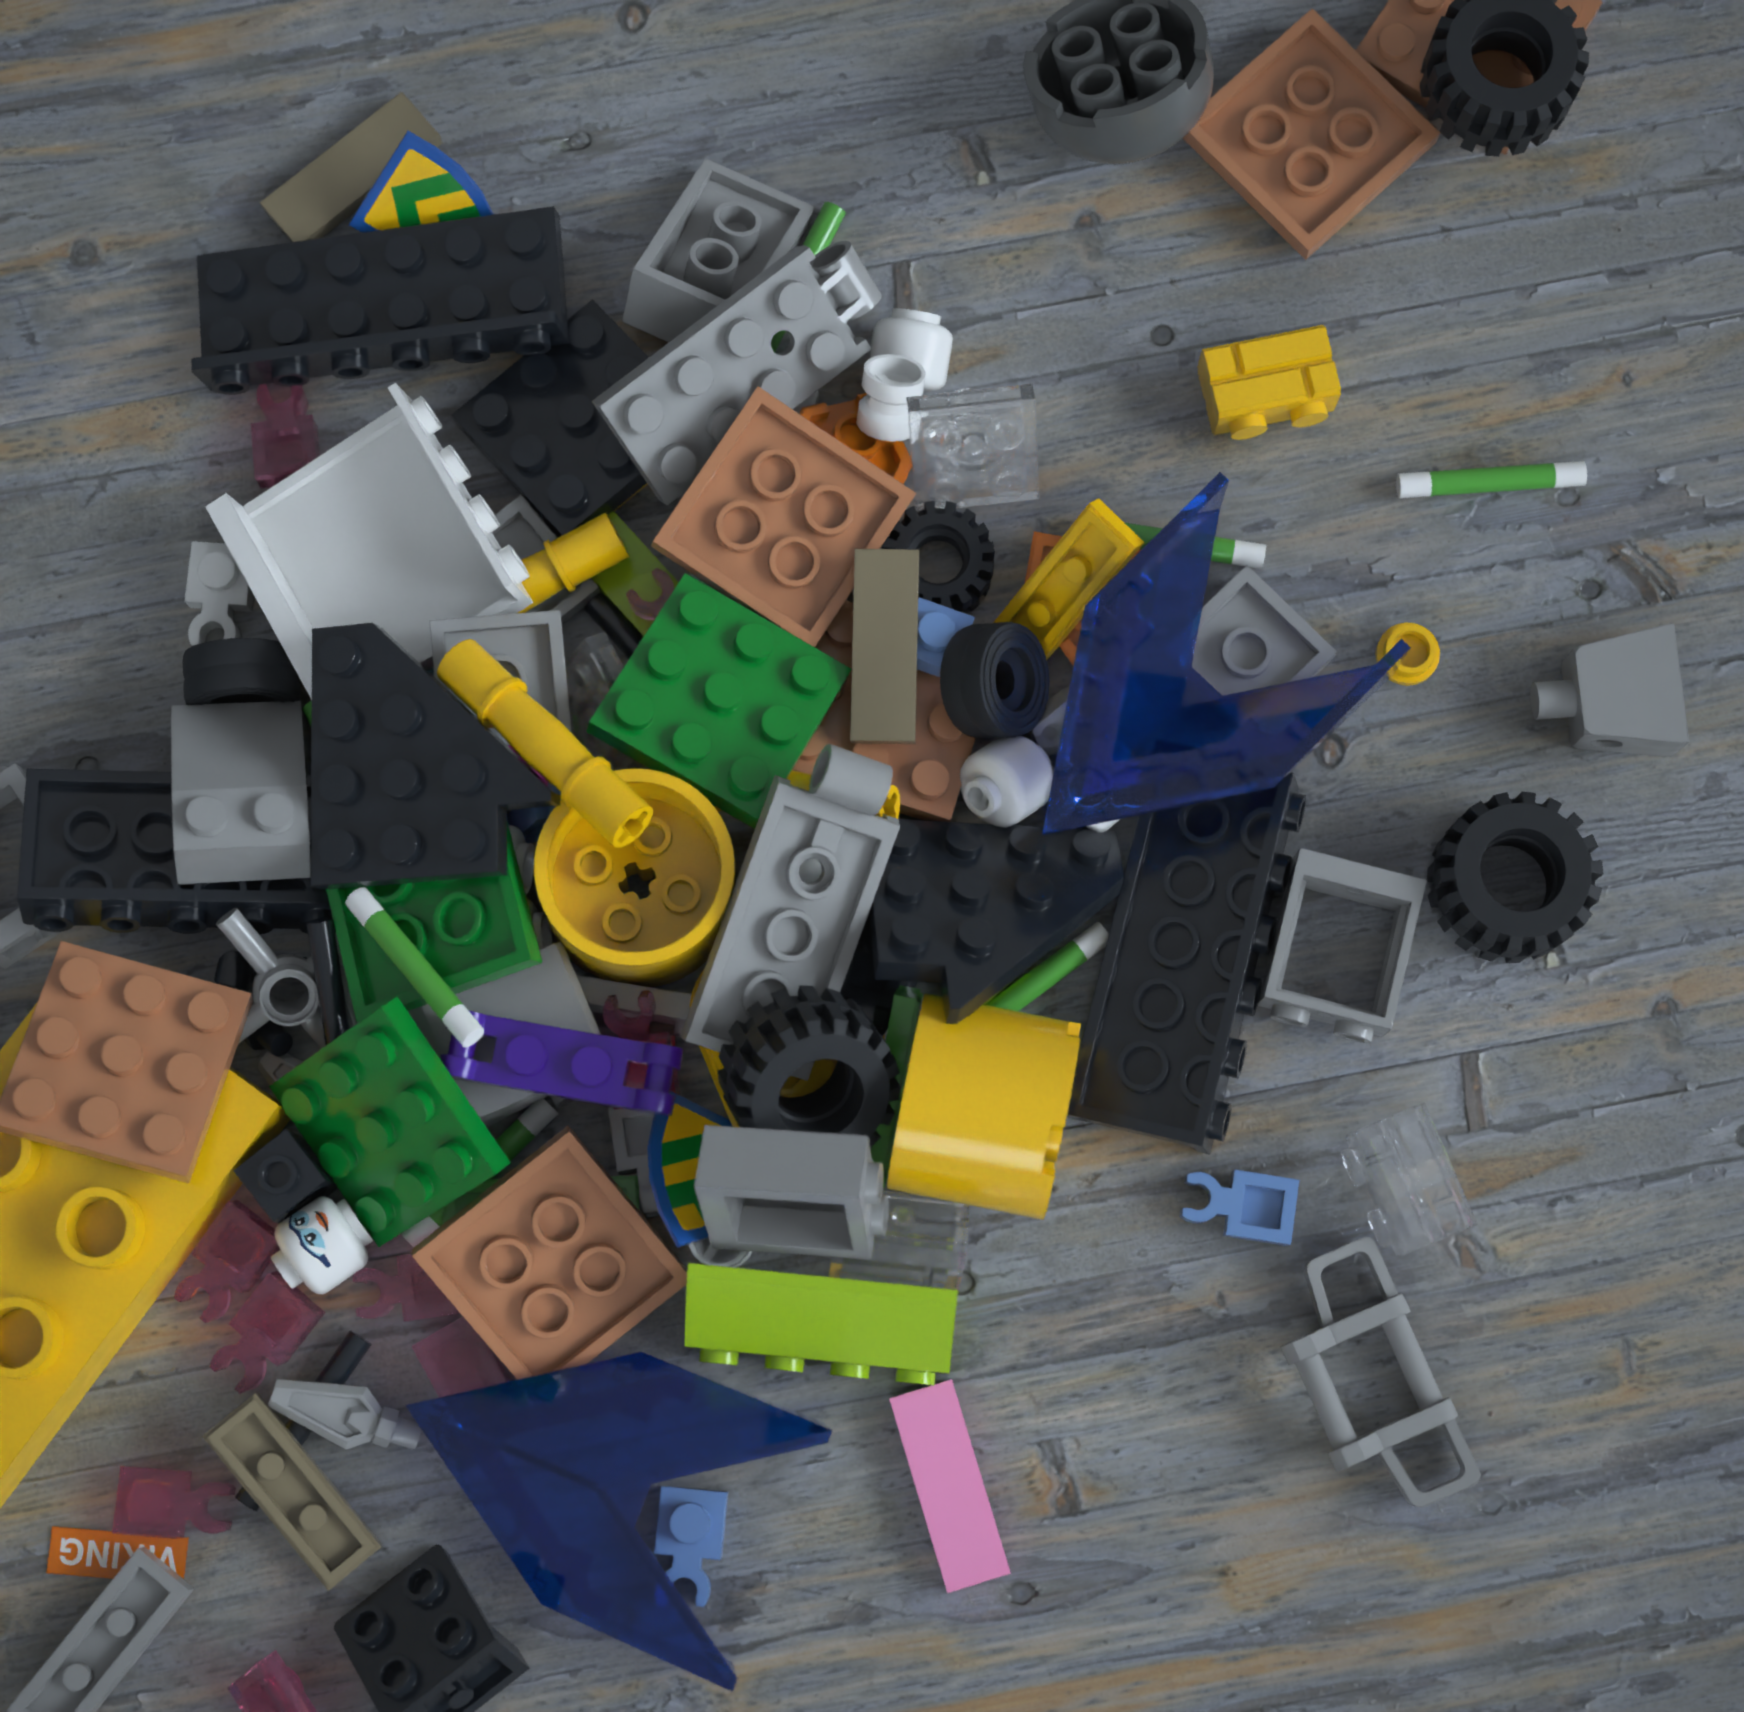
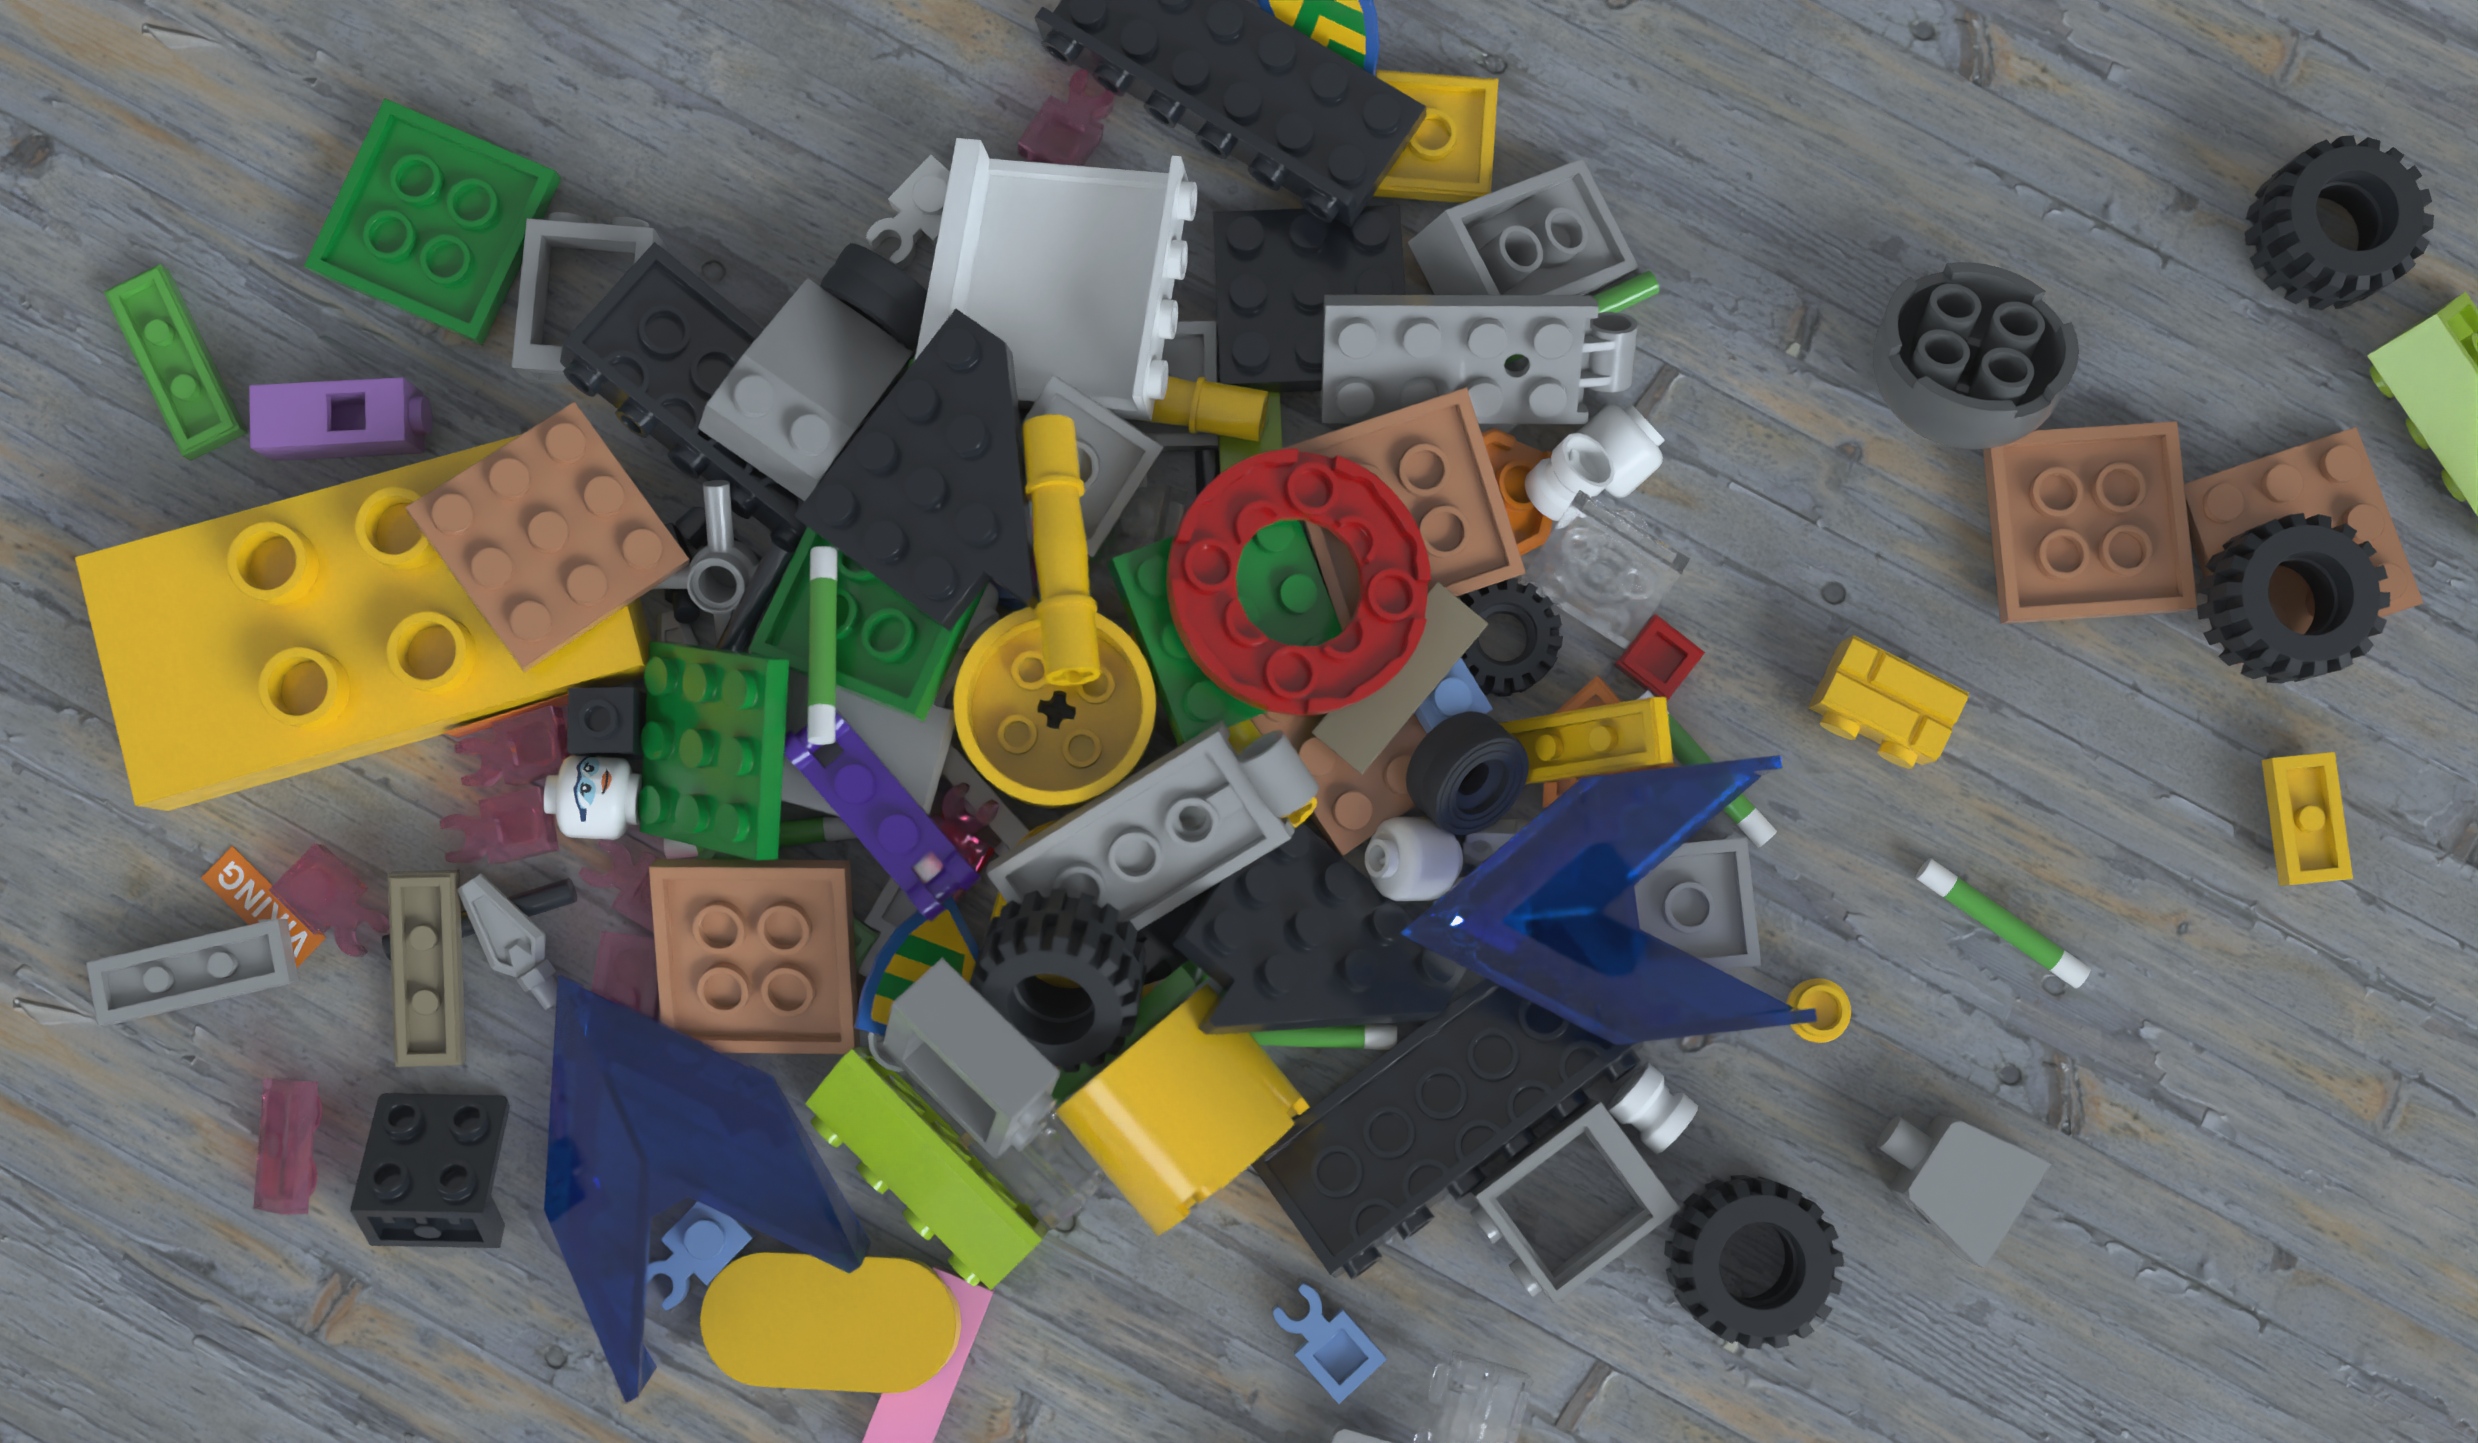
camera: 30 degrees right, 5 degrees up
(186, 1259) = (487, 723): none -> orange sticker
(597, 221) = (1454, 144): none -> yellow plate
(766, 543) = (1380, 540): none -> red plate
(841, 1507) = (818, 1328): none -> yellow tile
(1068, 484) = (1659, 658): none -> red tile
(1344, 825) = (1652, 1108): none -> white wheel
(1649, 224) = (2307, 819): none -> yellow plate

